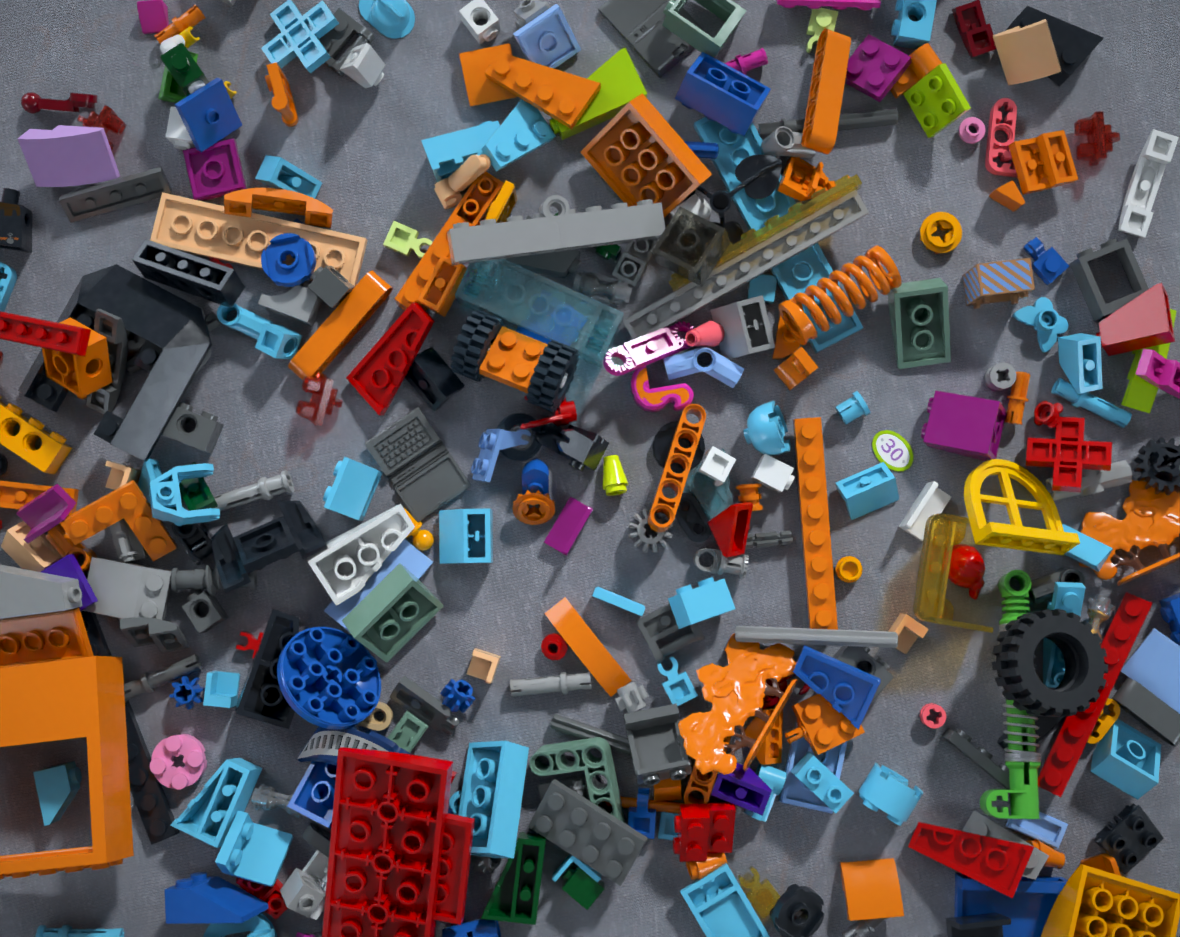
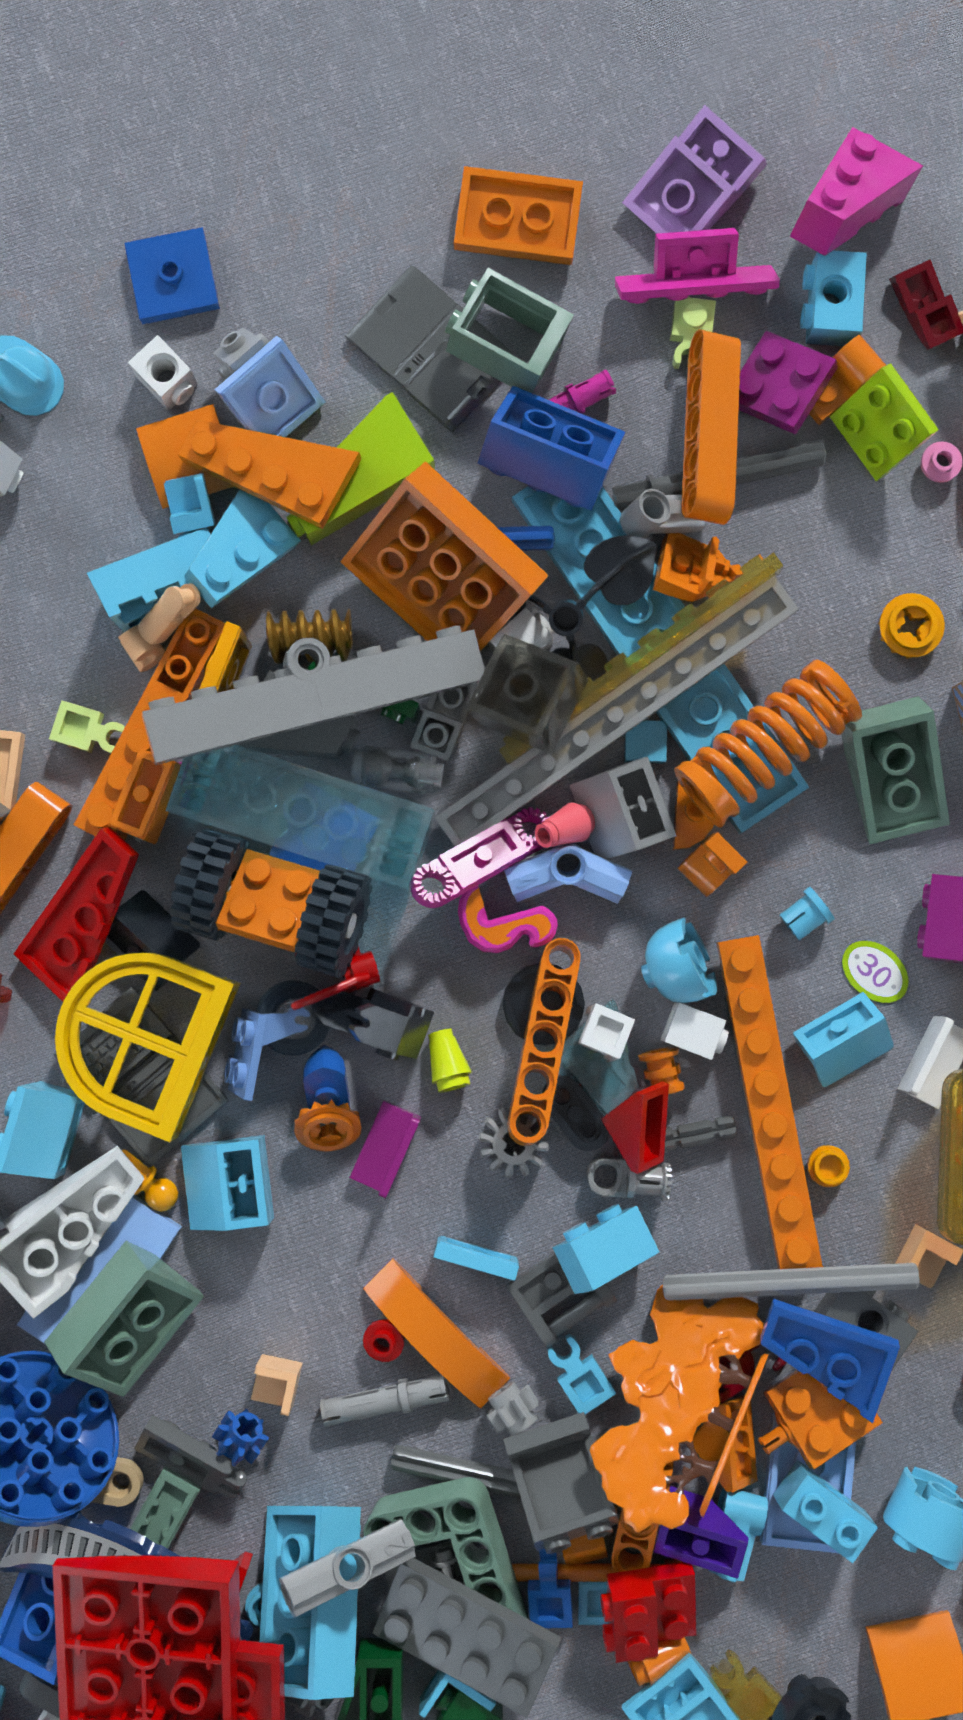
camera: 10 degrees left, 0 degrees up
(452, 452) = (189, 1057): none -> yellow window
(488, 104) = (189, 503): none -> medium azure panel
(504, 781) = (322, 1578): none -> light grey piece
(539, 194) = (332, 633): none -> pearl gold piece

